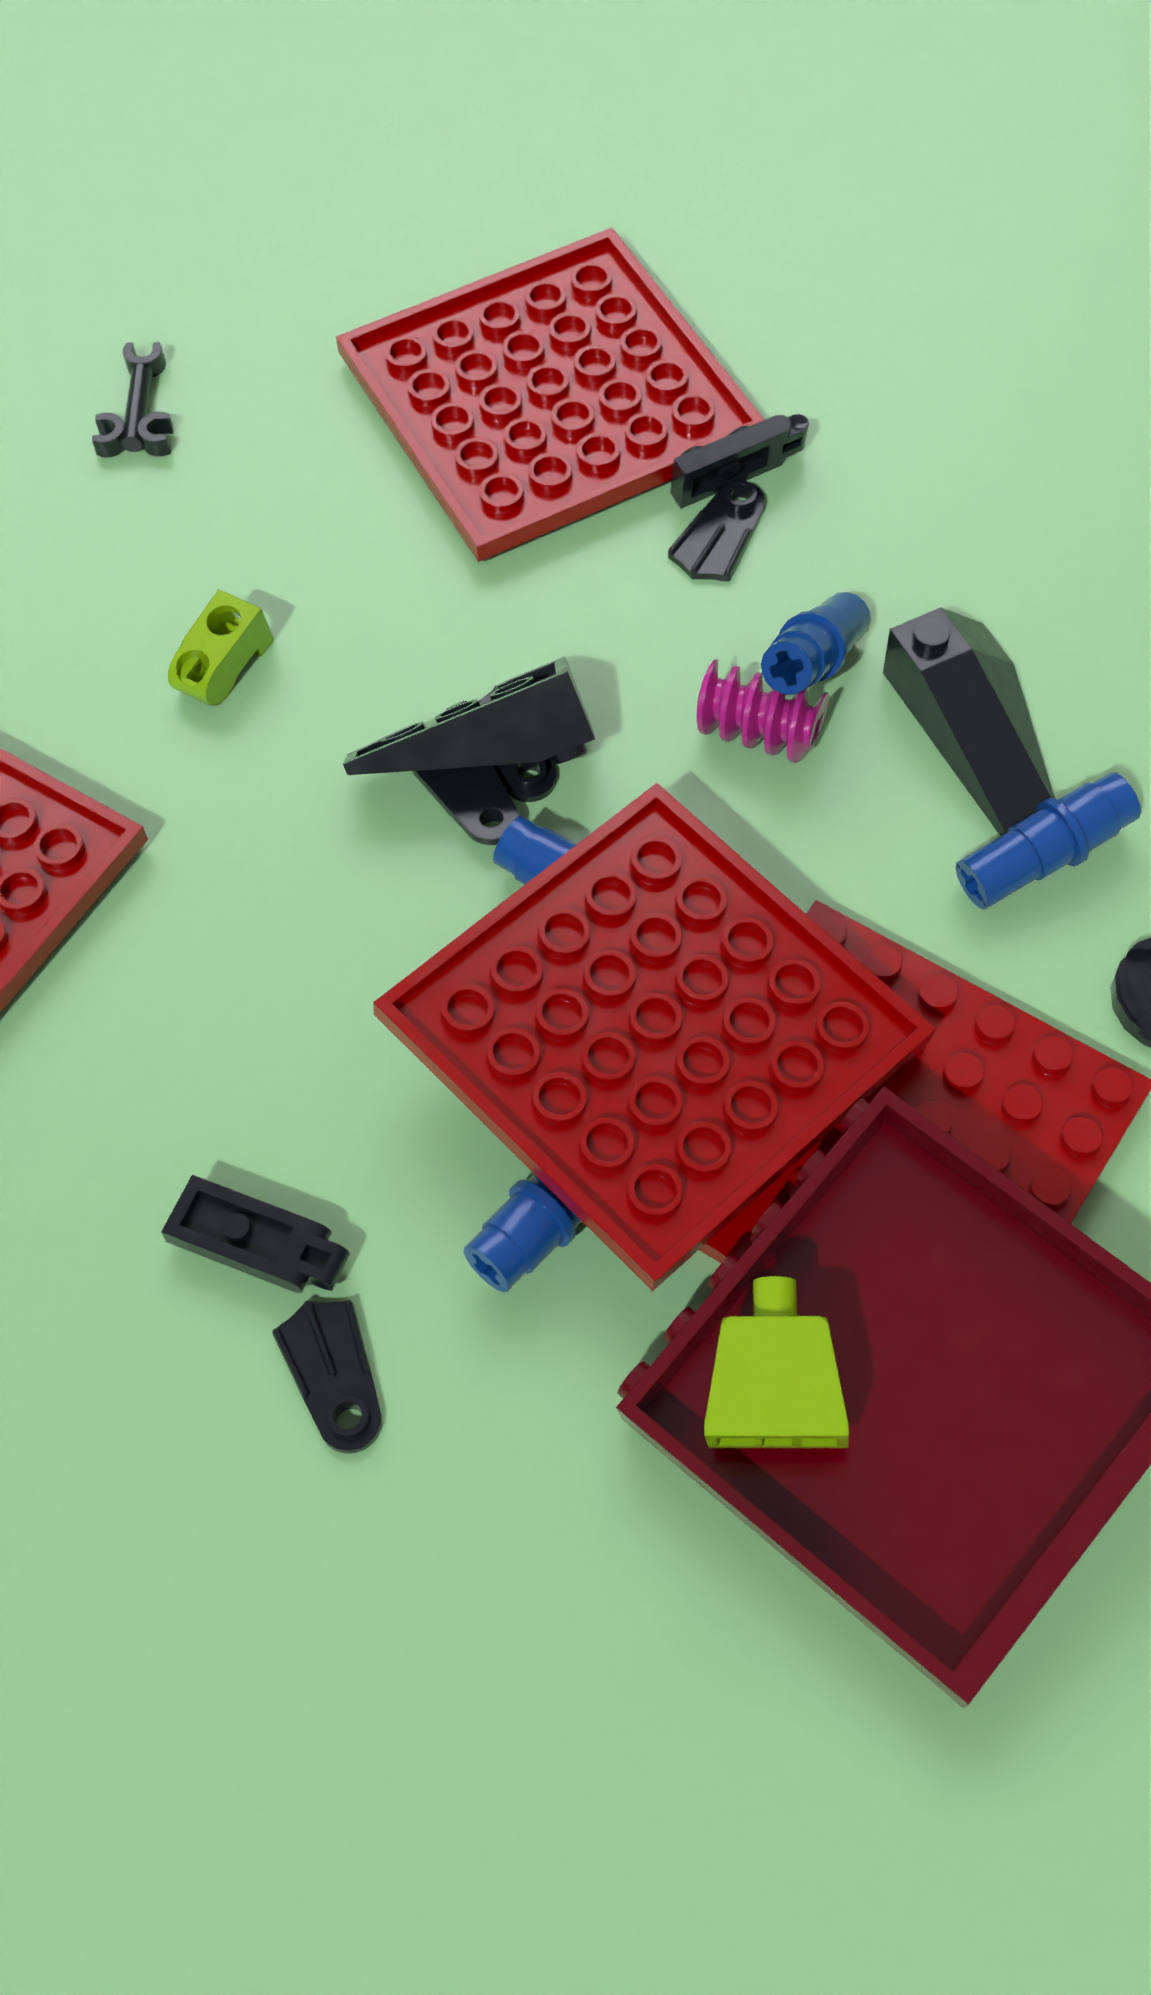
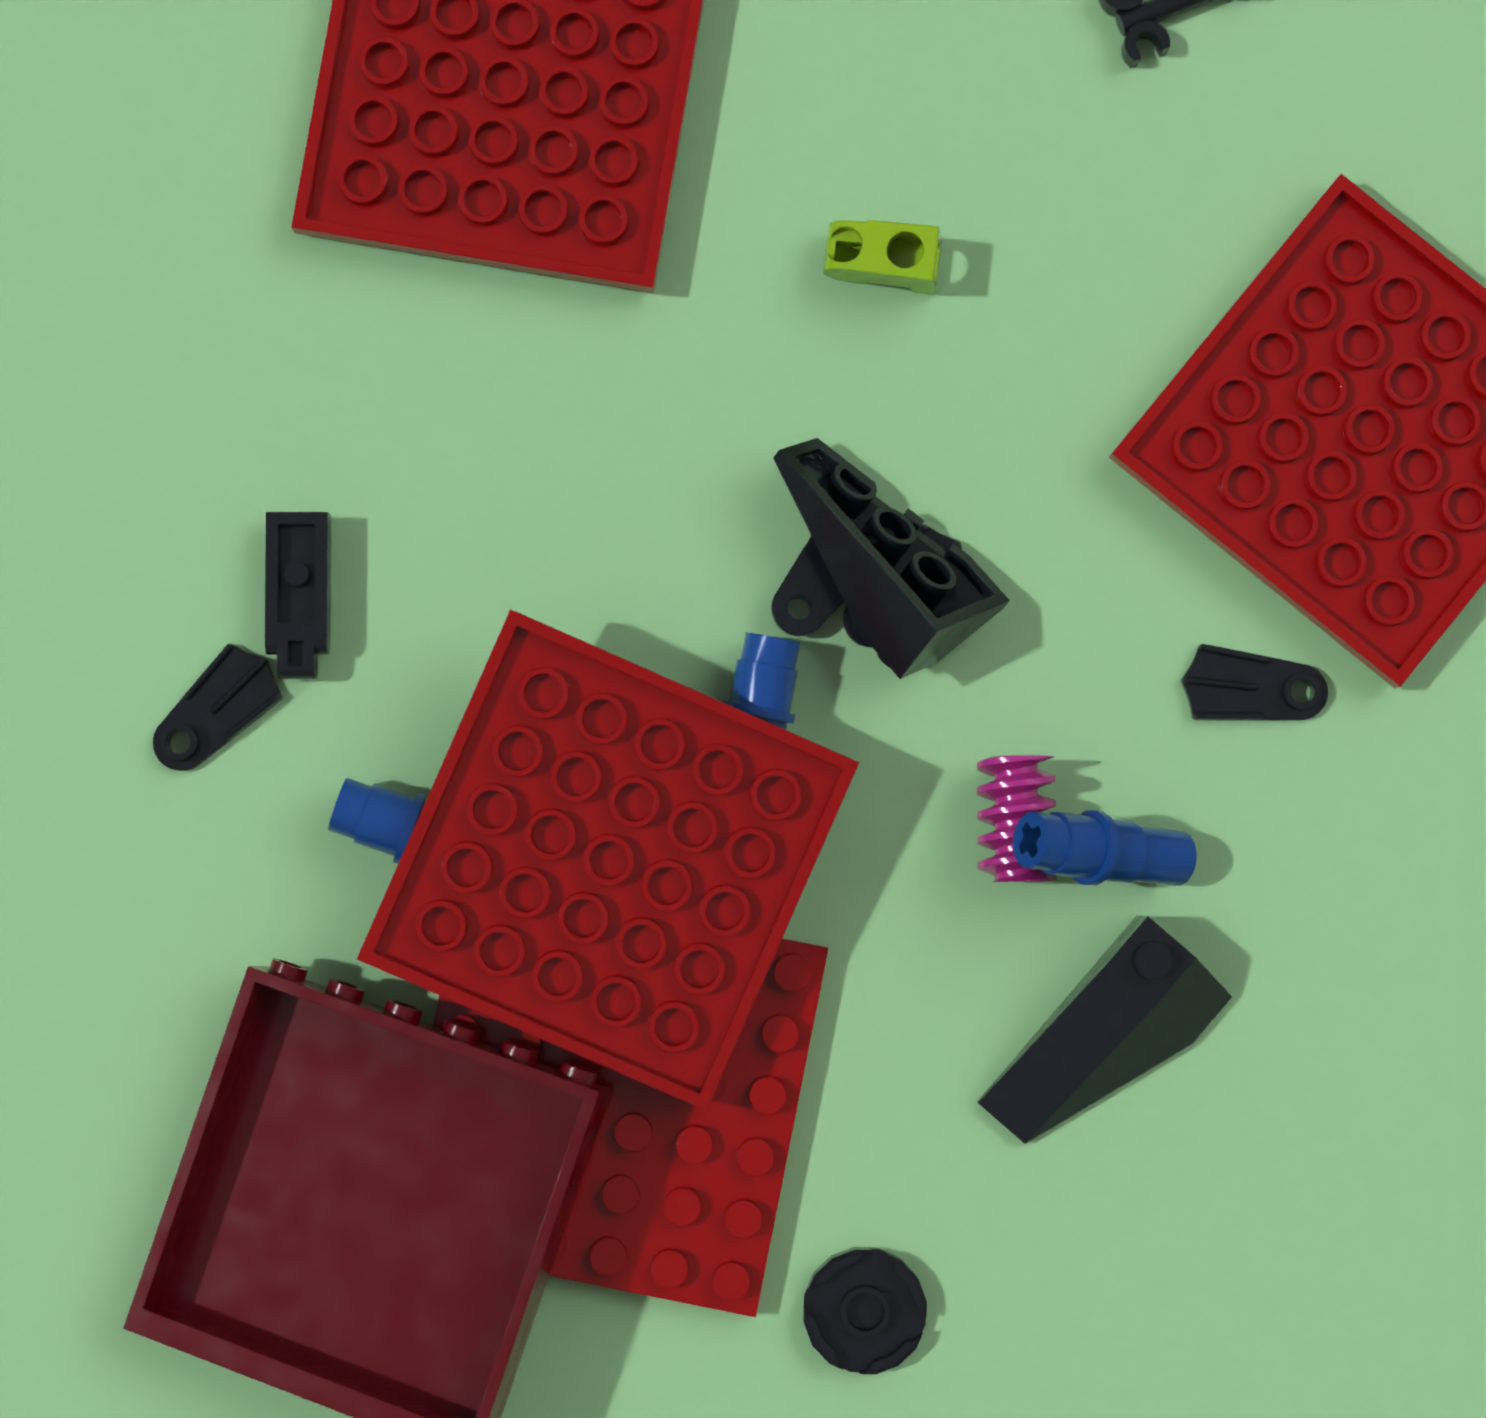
camera: 60 degrees right, 25 degrees up
(739, 456) = (1352, 675): black hinge -> none
(775, 1377) = (304, 1093): lime torso -> none
(1049, 839) = (978, 1146): blue piece -> none

